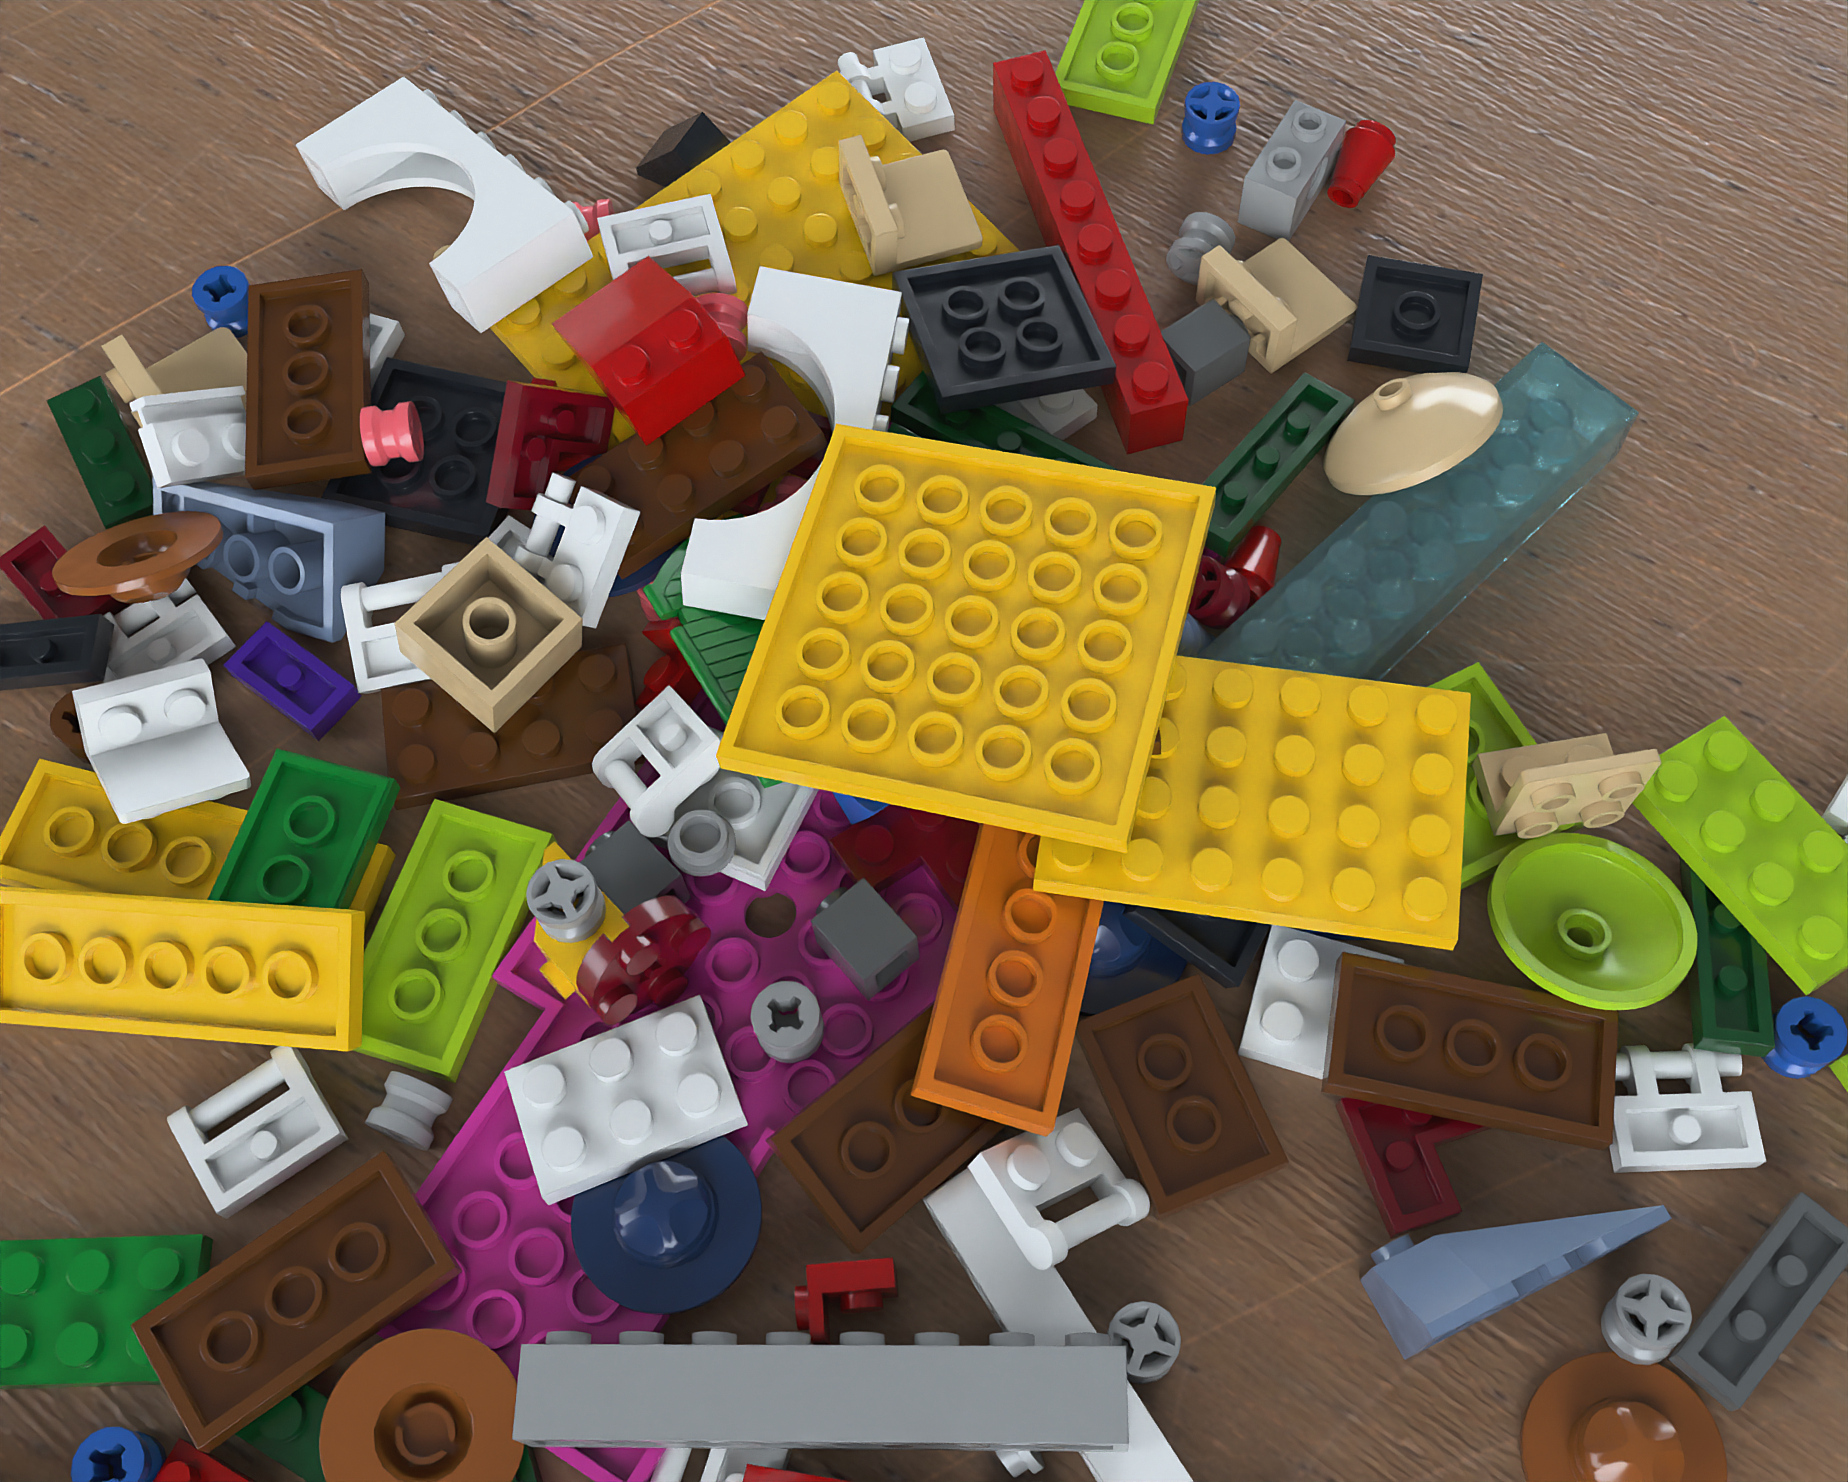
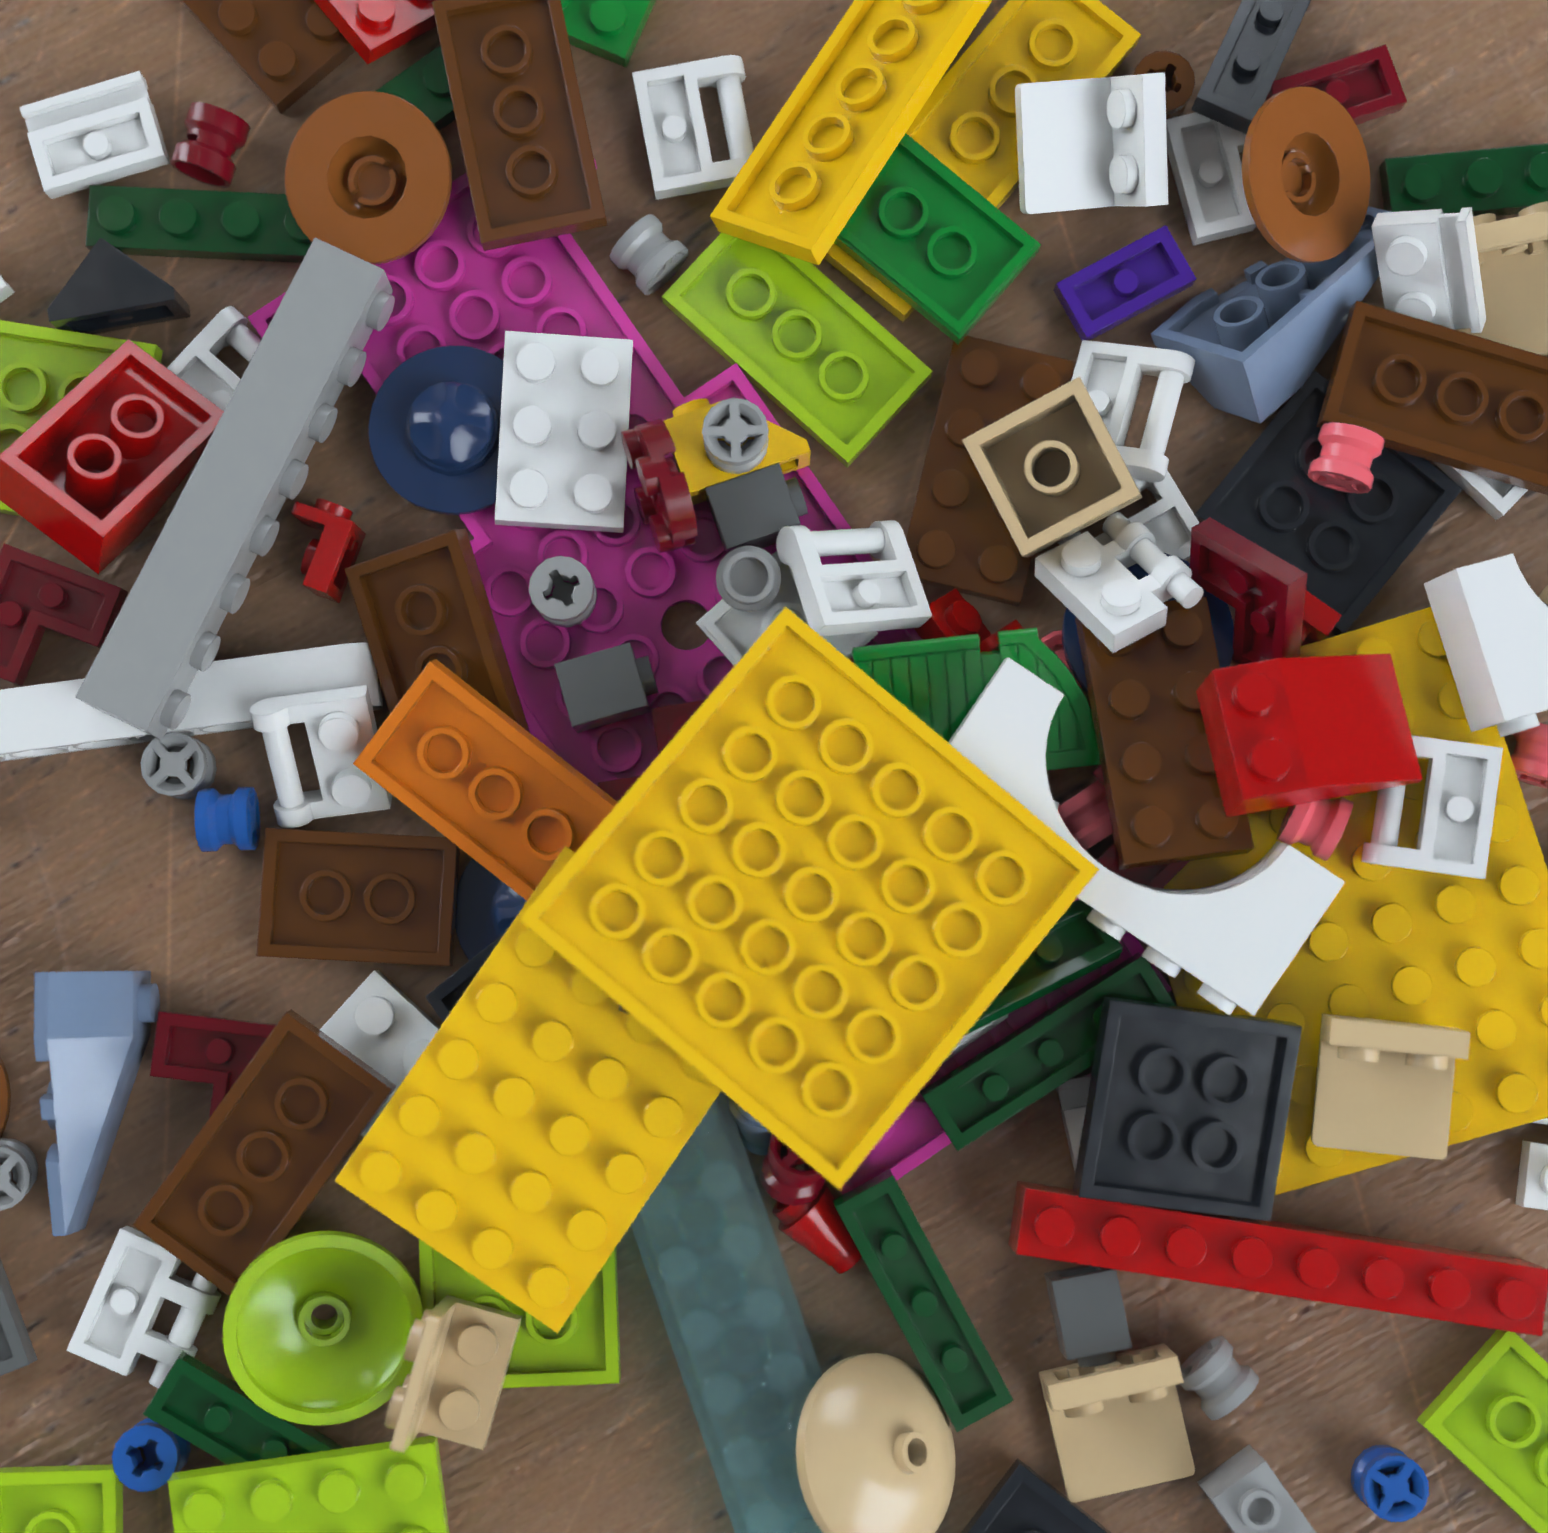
camera: 110 degrees right, 20 degrees up
(1170, 1261) = (227, 819): none -> blue wheel

